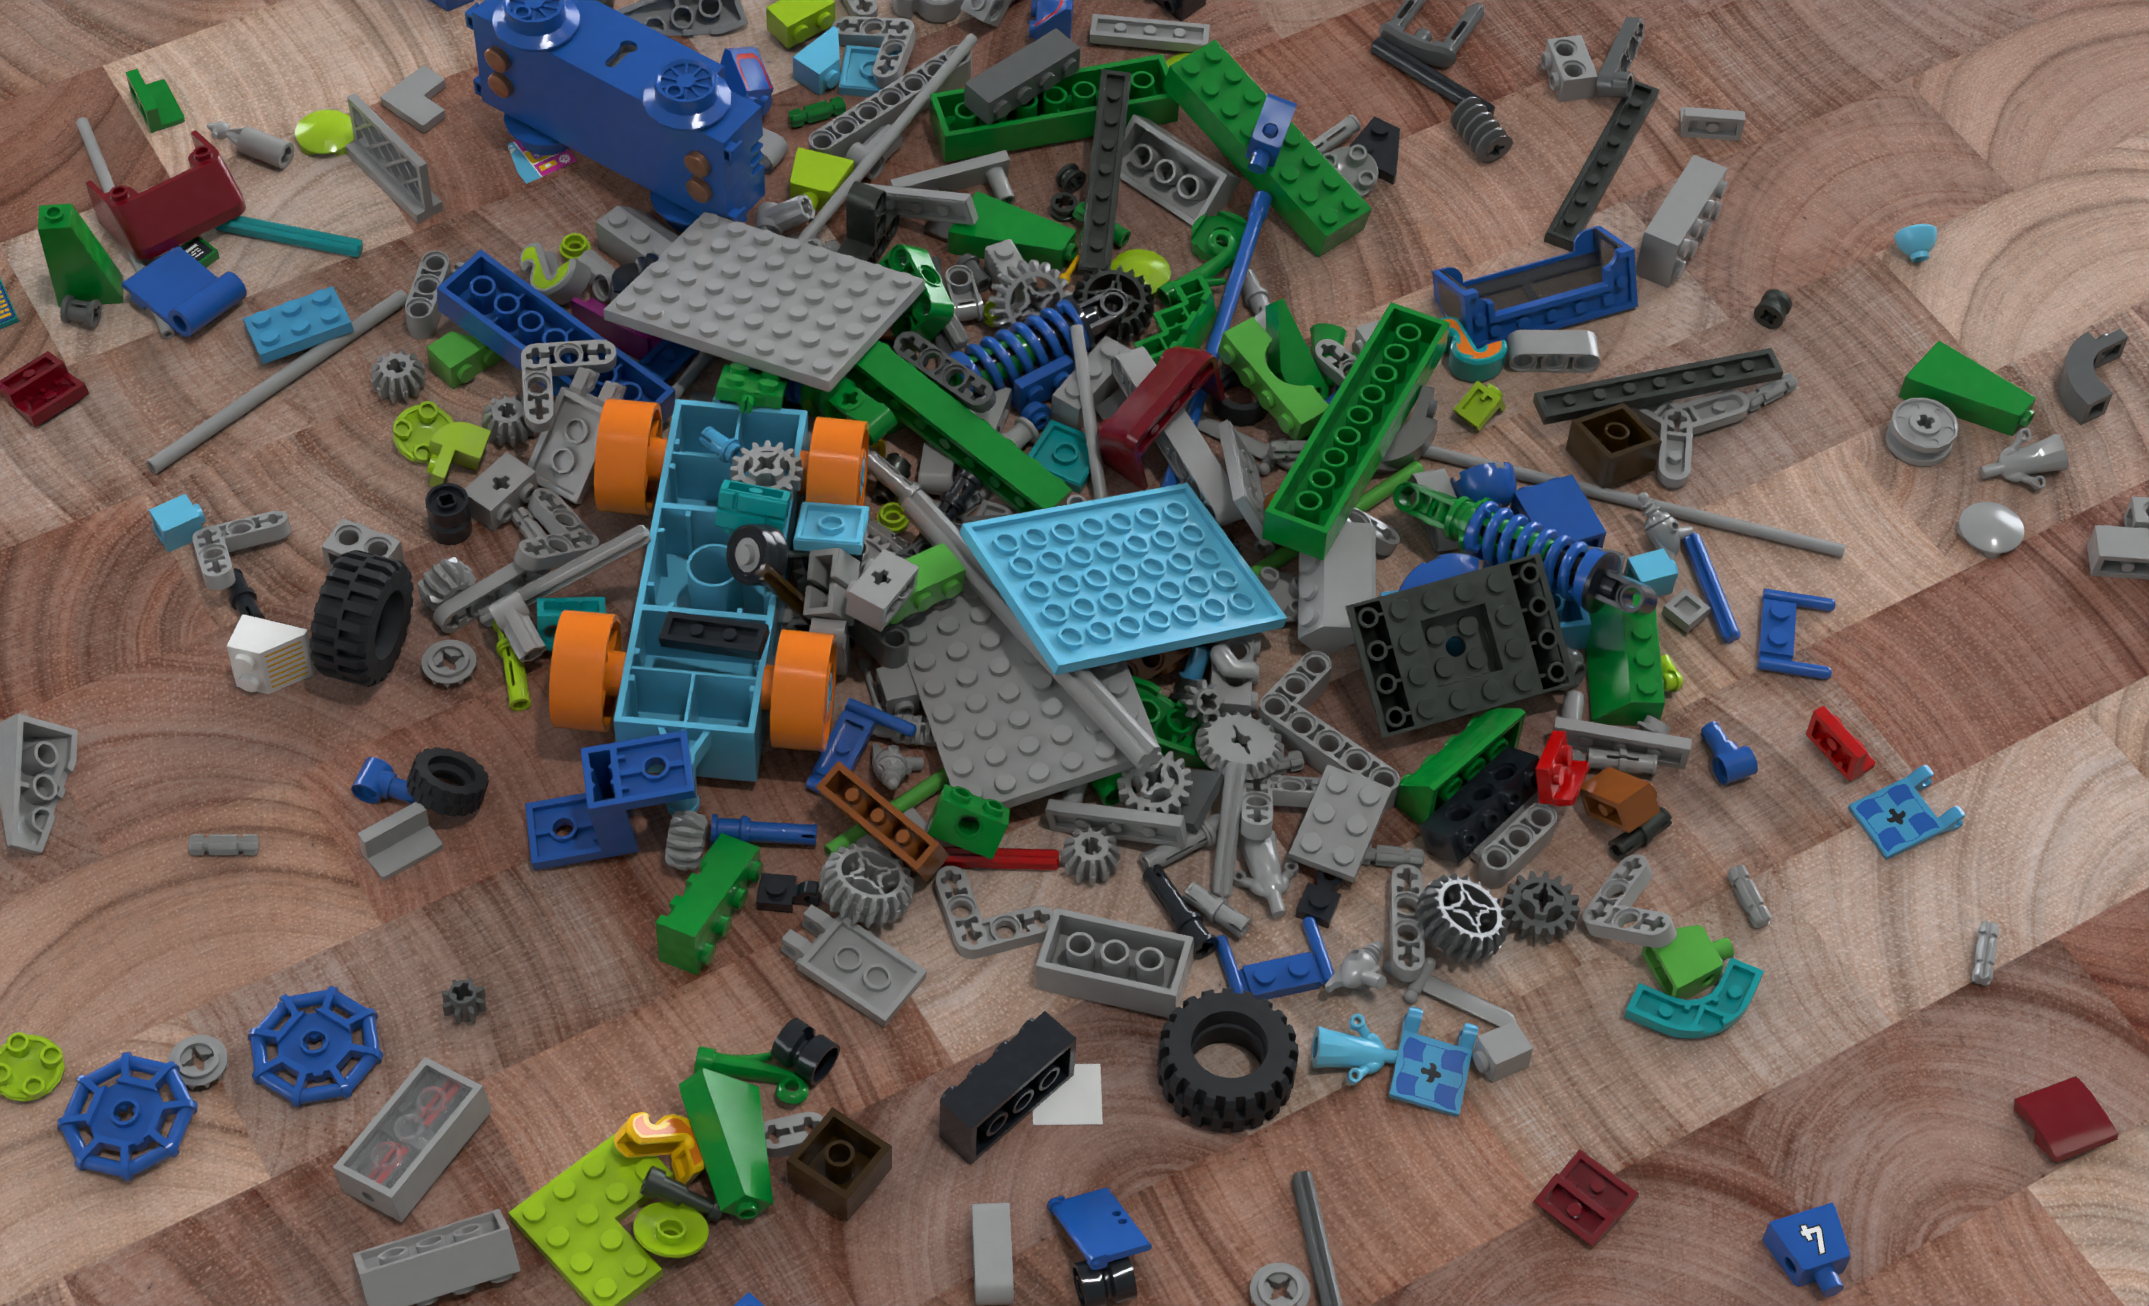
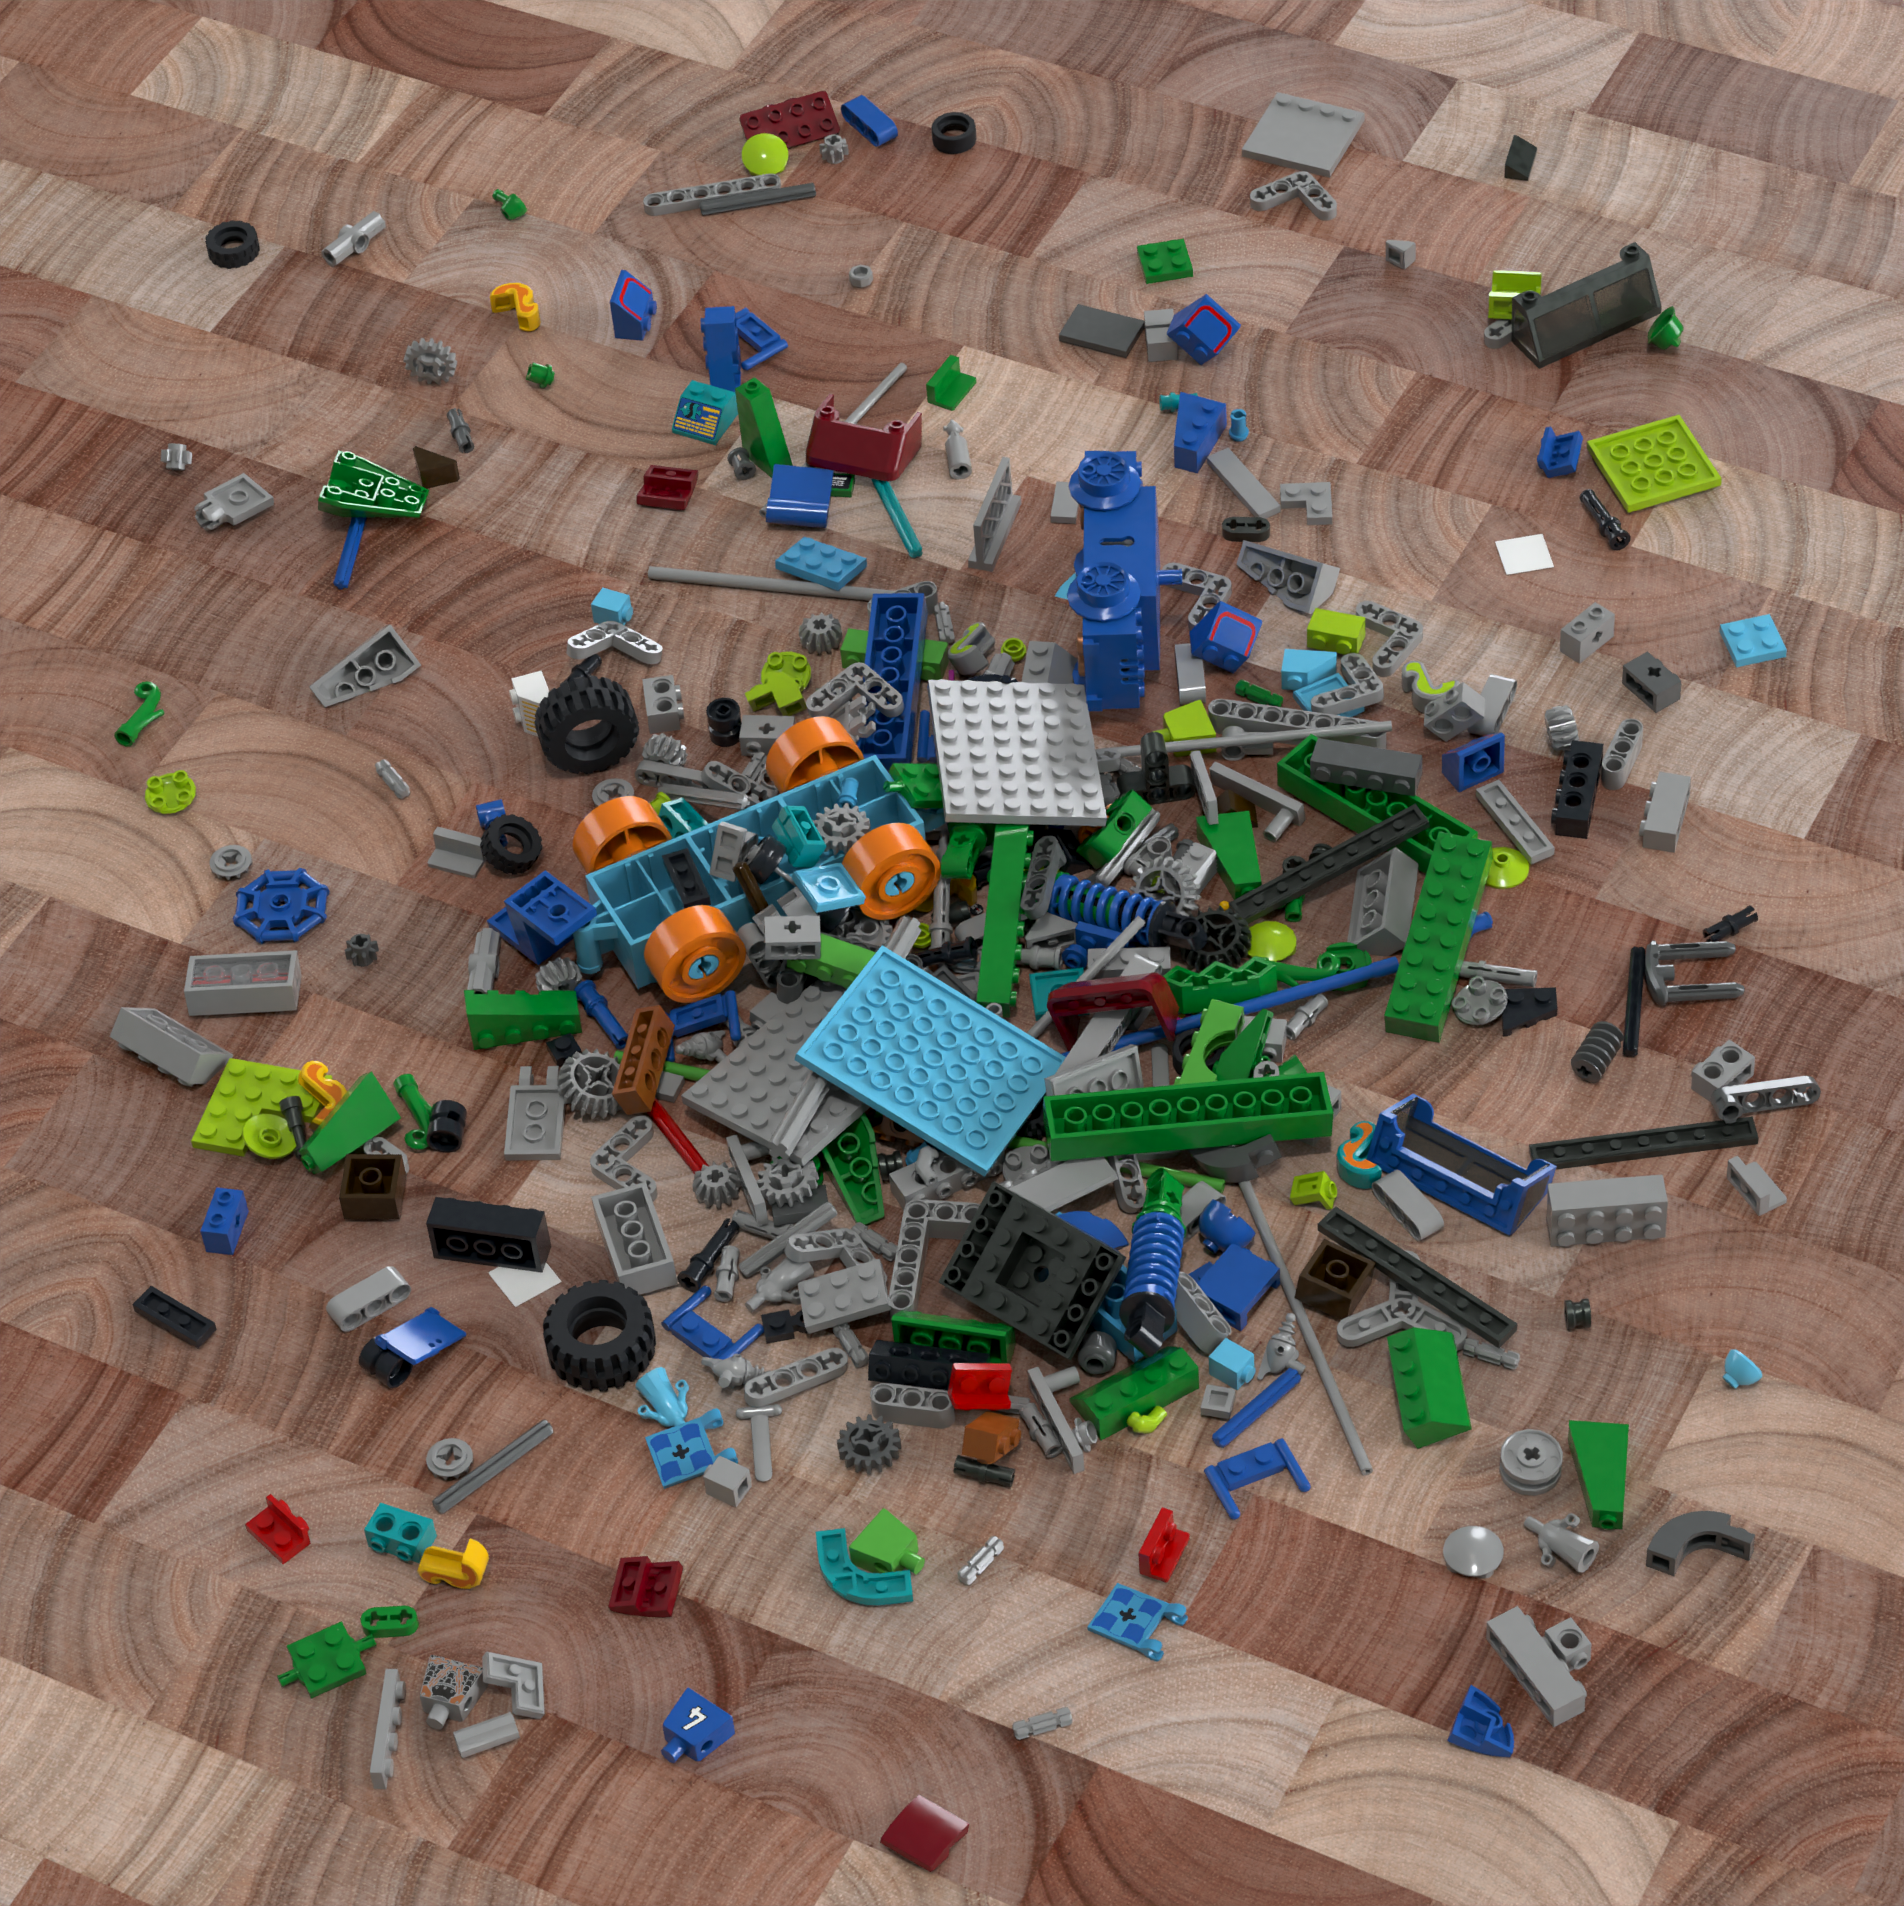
camera: 65 degrees right, 5 degrees down
(135, 1133) = (155, 860): blue plate -> none
(324, 132) = (988, 471): lime dish -> none
(515, 621) = (657, 792): light grey piece -> none
(593, 900) = (484, 963): none -> light grey piece
(716, 572) = (730, 847): none -> light grey tile
(785, 215) = (1130, 729): light grey piece -> none
(975, 836) = (676, 1100): green brick -> none
(1210, 699) = (871, 1162): light grey gear -> none
(1217, 744) = (868, 1226): light grey gear -> none
(1269, 133) = (1417, 918): blue torso -> none
(1462, 918) = (803, 1382): dark grey gear -> none
(1607, 916) = (888, 1485): light grey beam -> none
(1729, 760) = (1097, 1492): blue pin -> none
(1788, 450) = (1428, 1385): none -> green slope

